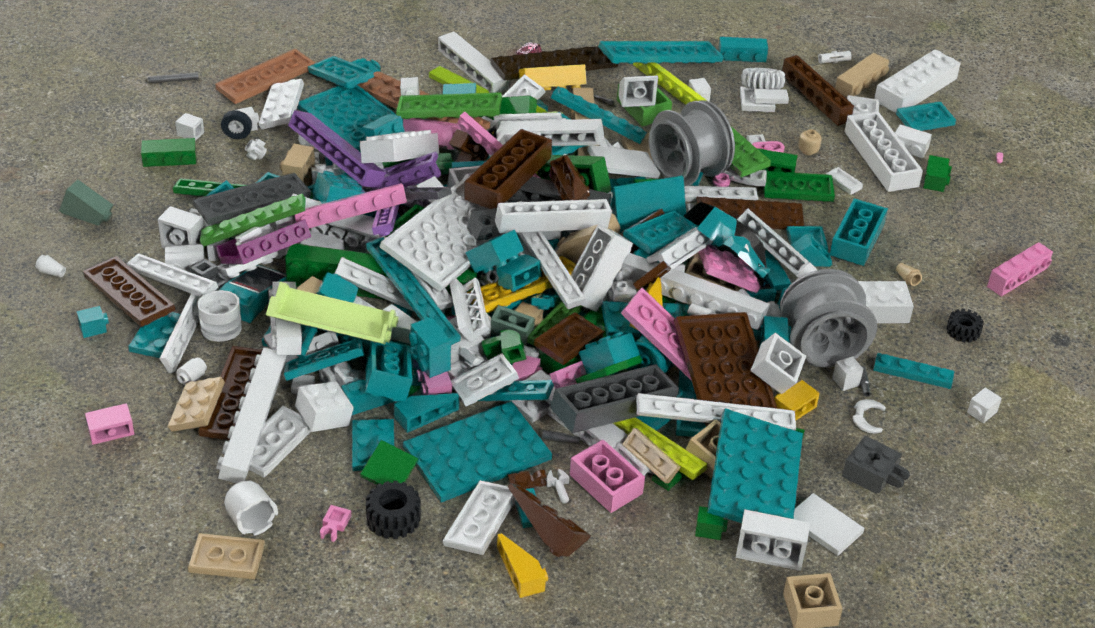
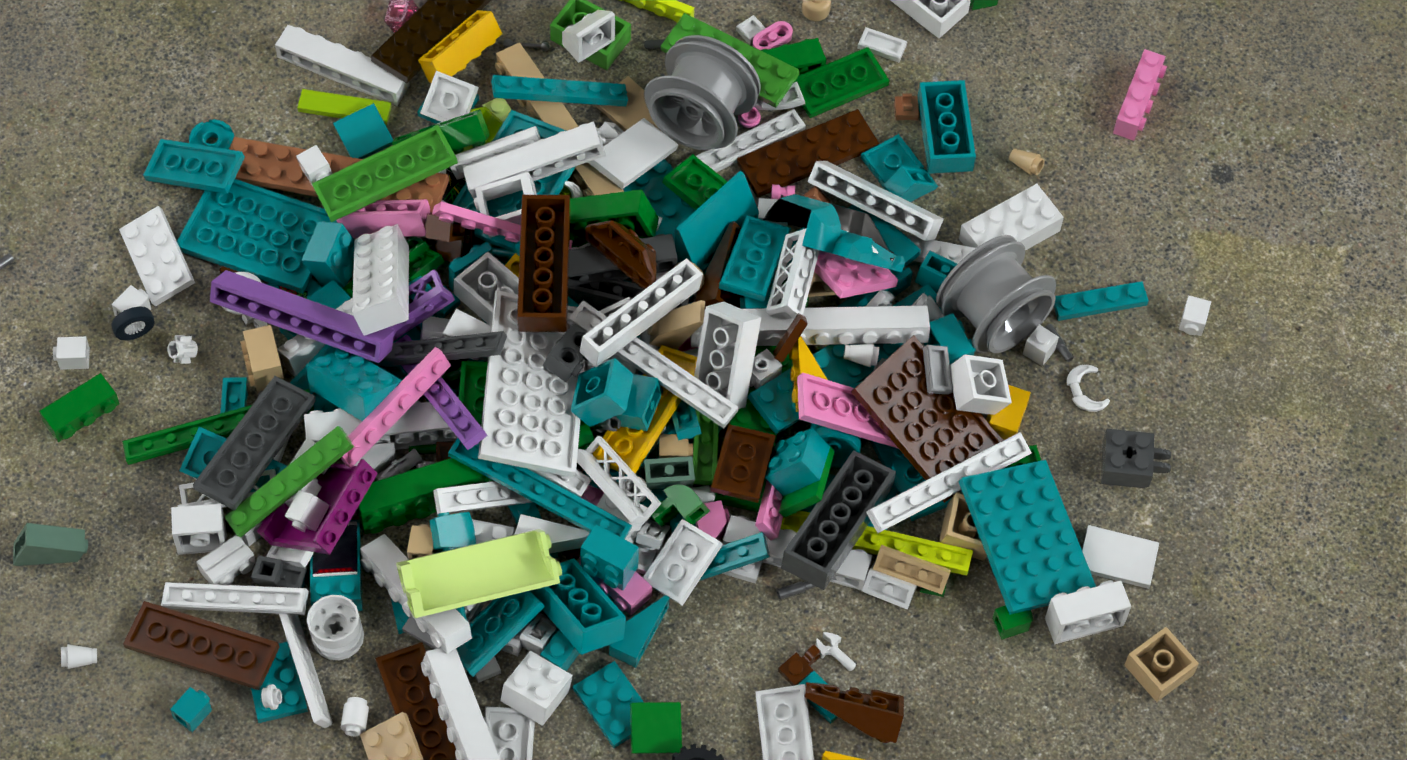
camera: 30 degrees left, 20 degrees up
(144, 332) = (271, 697): none -> white plate
(264, 76) = (99, 216): nougat plate -> none
(477, 449) = (724, 653): teal plate -> none
(607, 476) = (881, 618): bright pink brick -> none
(751, 340) = (937, 369): none -> light grey tile
(836, 215) = (906, 107): none -> nougat tile
(969, 332) = (1121, 220): black tyre -> none

